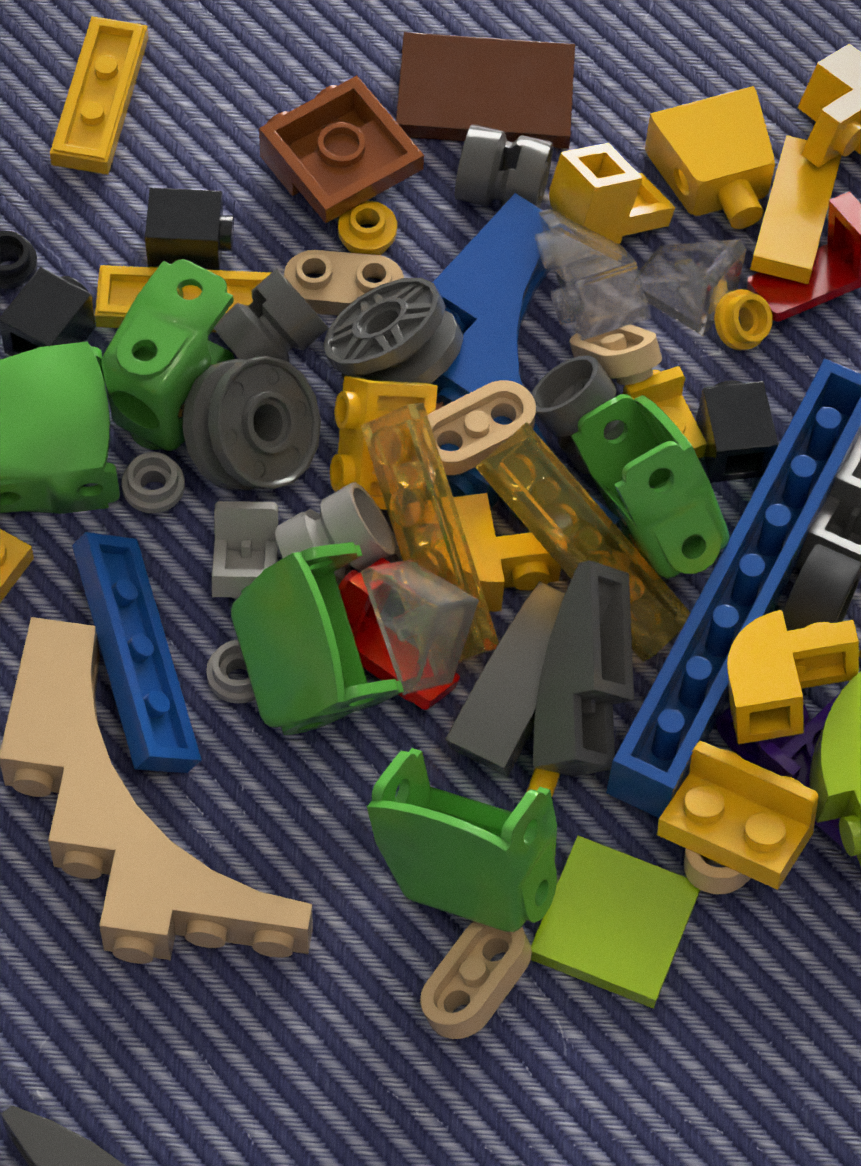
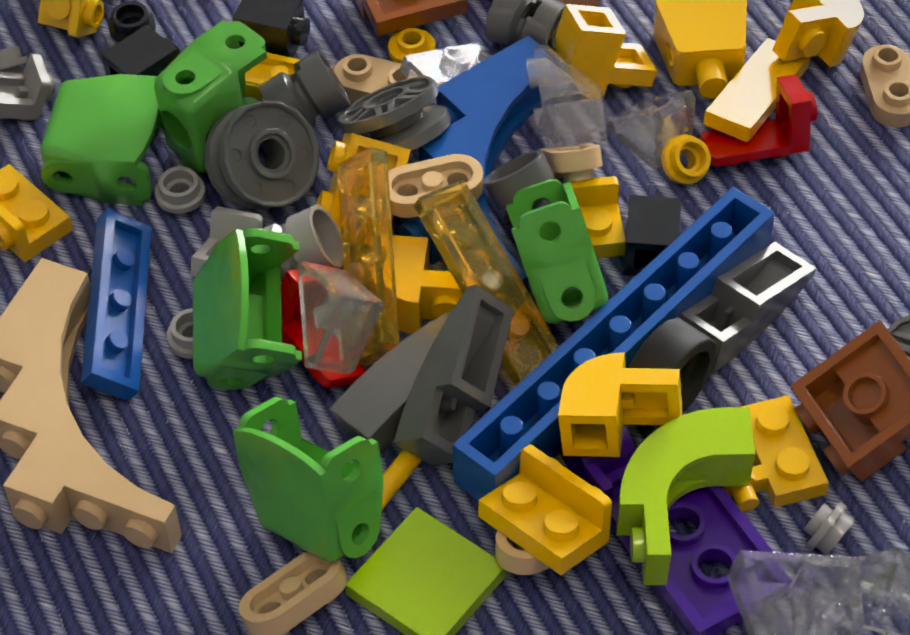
camera: 20 degrees right, 10 degrees down
(425, 247) = (443, 63): none -> clear plate

